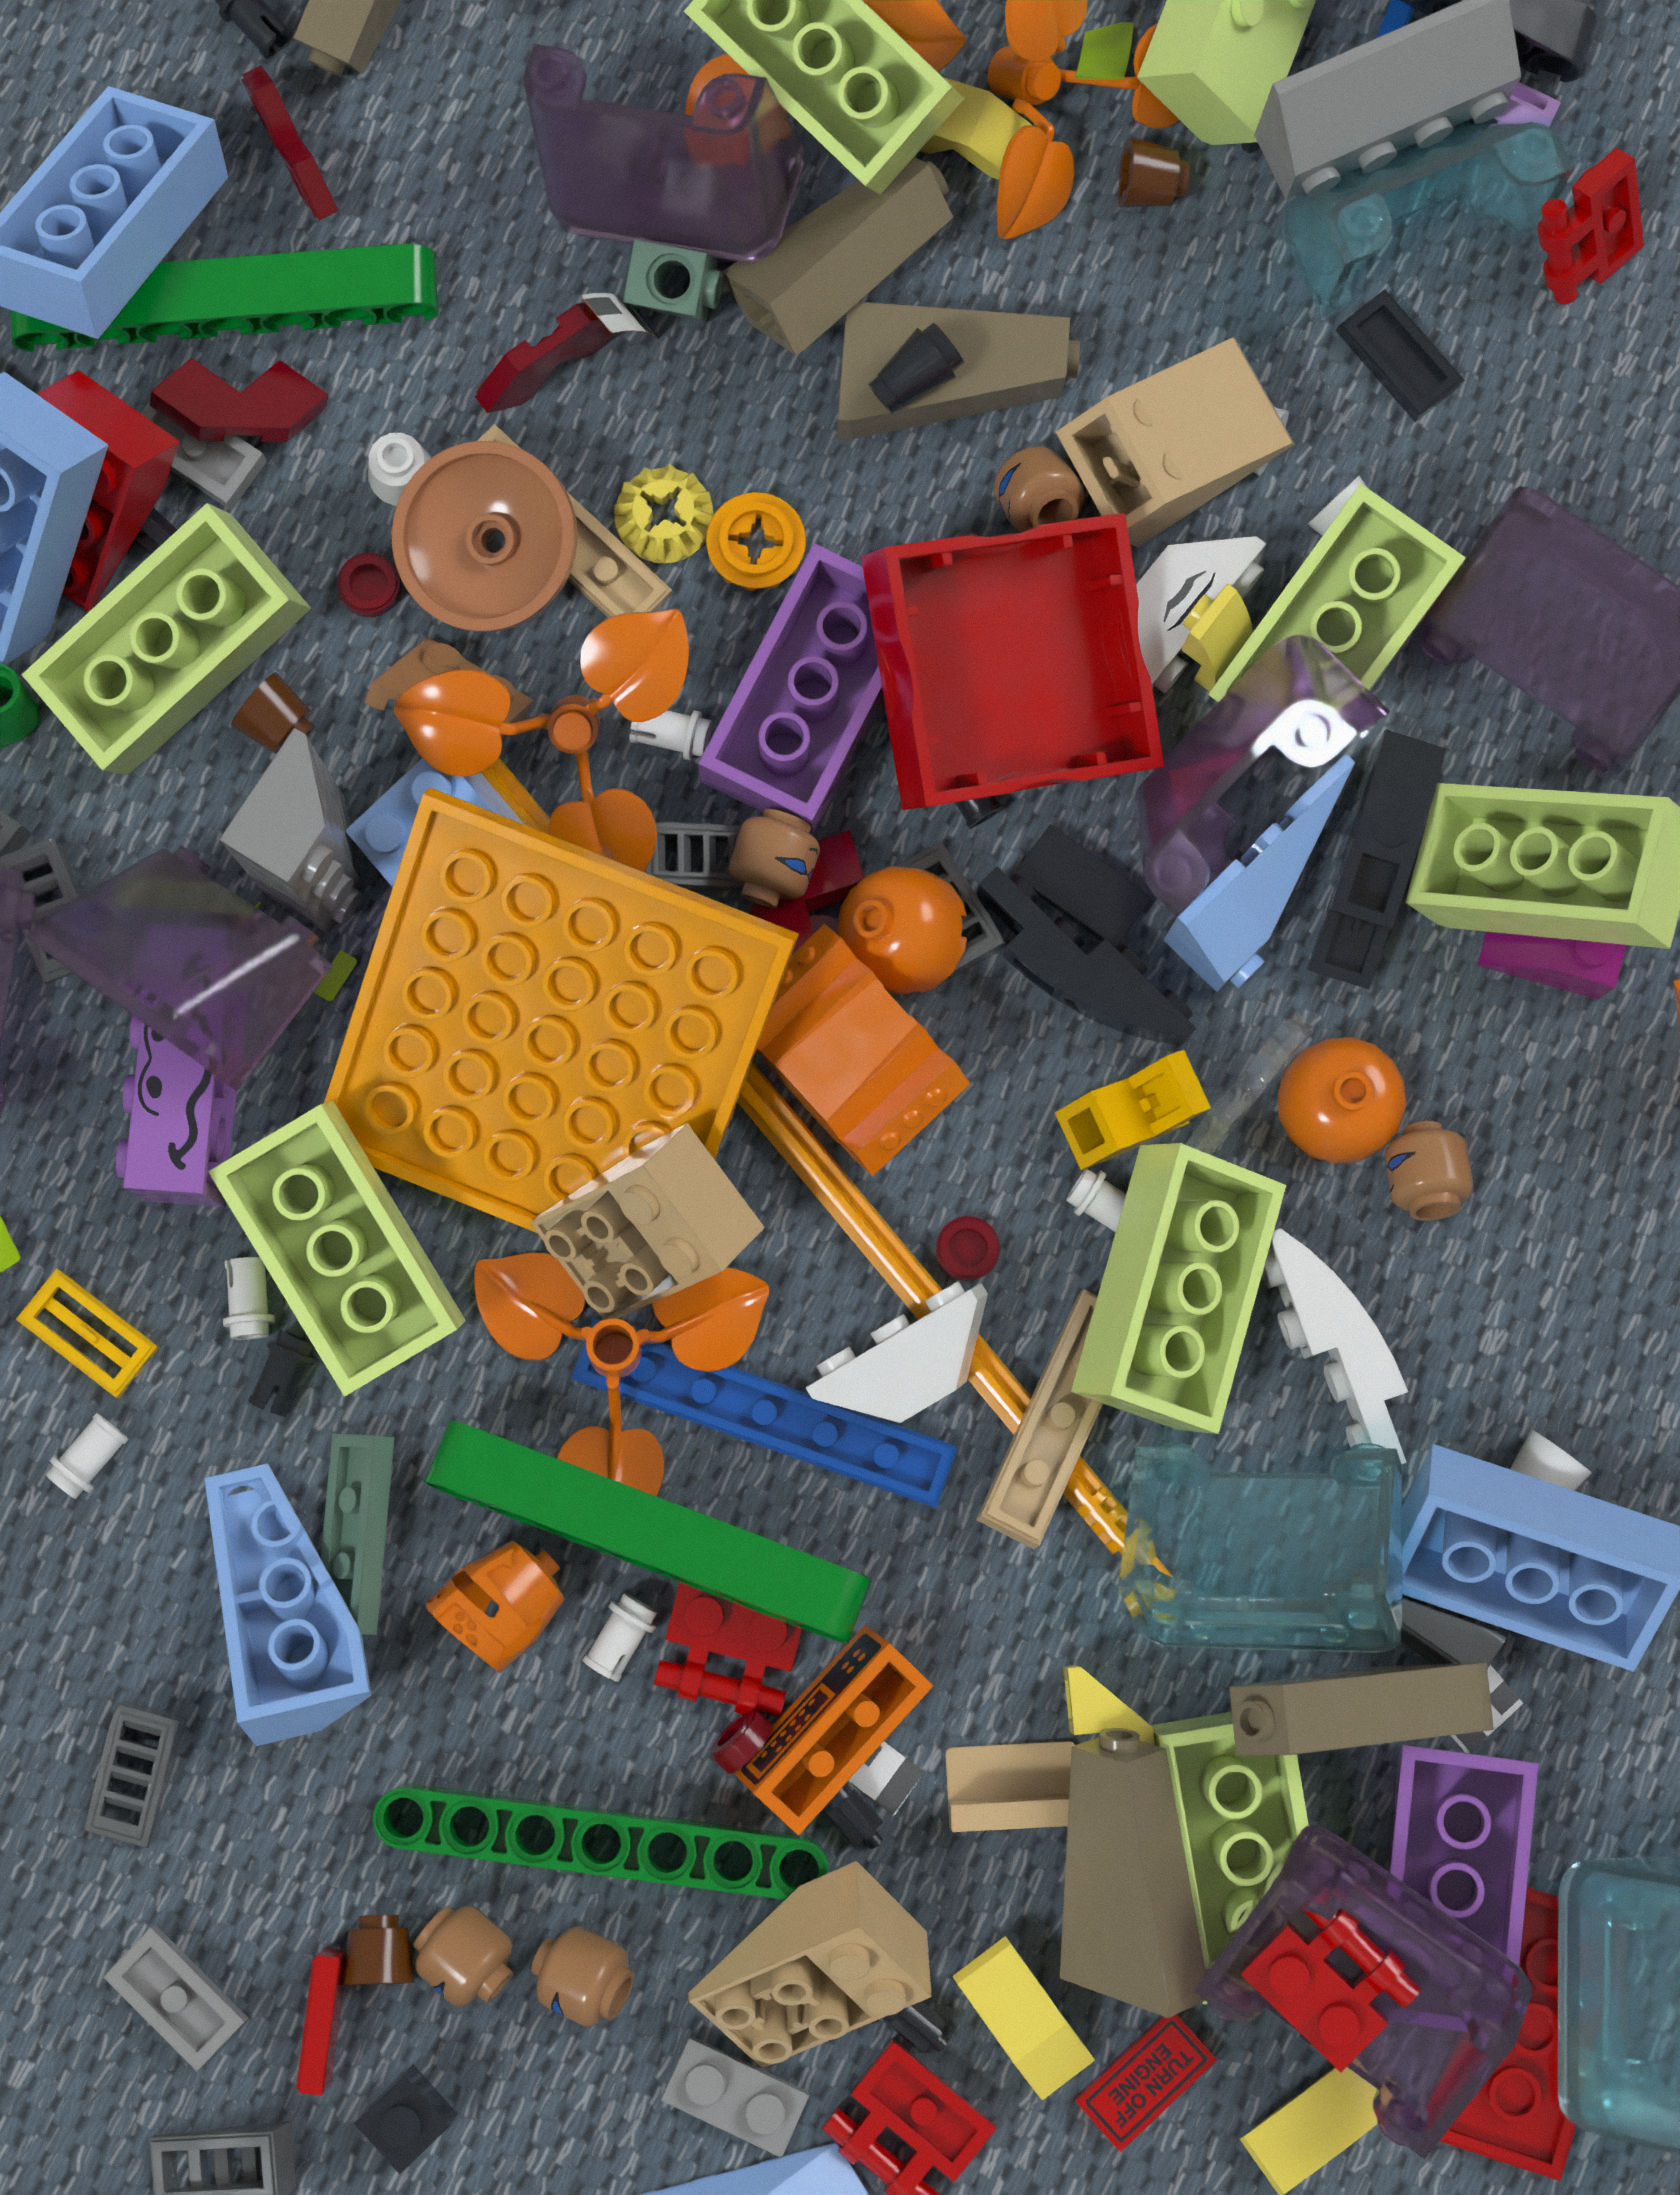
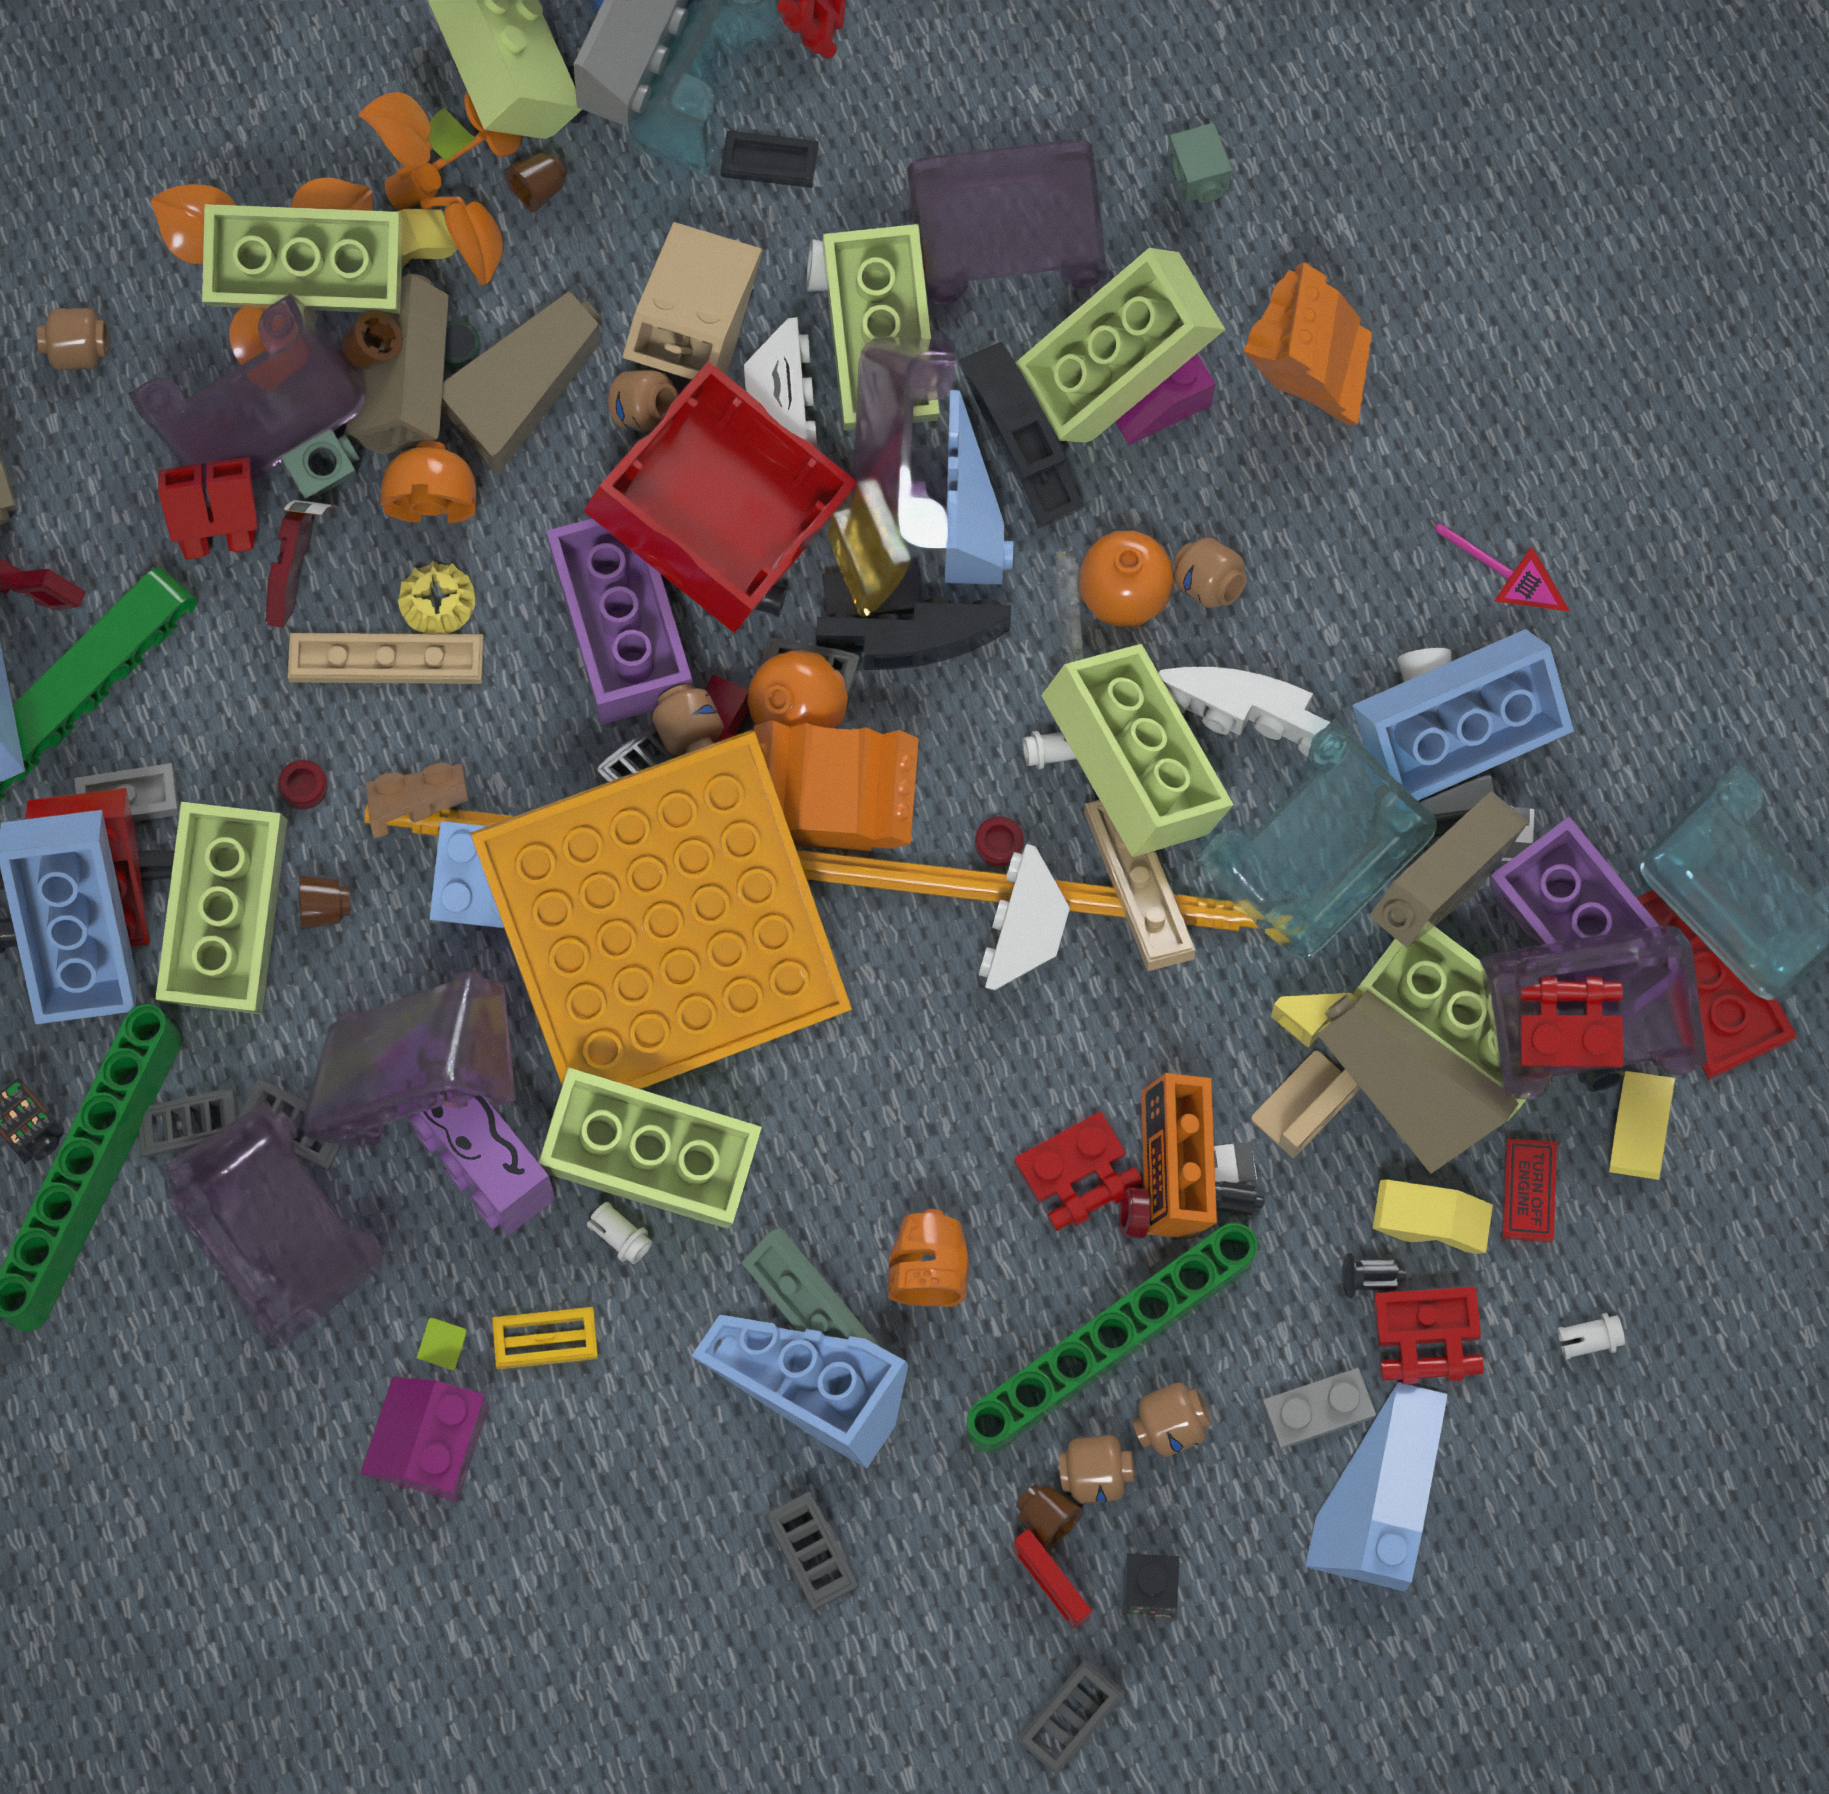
camera: 40 degrees left, 10 degrees down
(86, 1457) = (612, 1404): white pin -> none
(175, 1997) = (957, 1647): light grey plate -> none
(210, 408) = (115, 764): dark red tile -> none
(283, 1368) = (680, 1254): black pin -> none
(296, 838) = (417, 929): light grey slope -> none
(393, 463) = (258, 705): white hat -> none
(445, 528) = (321, 673): nougat dish -> none
(528, 225) = (188, 511): none -> red hips
(534, 1300) = (887, 1004): orange plant -> none
(620, 1636) = (1012, 1221): white pin -> none
(630, 658) = (511, 677): orange plant -> none
(648, 1532) = (972, 1143): green beam -> none
(649, 1225) = (813, 978): tan slope -> none
(675, 732) = (558, 710): white pin -> none
(736, 521) = (509, 547): light orange gear -> none
(752, 392) = (428, 483): none -> orange cylinder
(785, 1422) = (972, 1031): blue tile -> none
(818, 1968) = (1296, 1289): tan slope -> none
(824, 198) = (372, 340): none -> reddish brown hat
(916, 368) = (512, 387): black cone -> none
(922, 277) = (461, 344): none -> tile
(1108, 844) = (868, 548): none -> clear yellow slope
(1133, 1110) = (1020, 680): yellow brick -> none
(1216, 634) = (819, 387): light yellow slope -> none

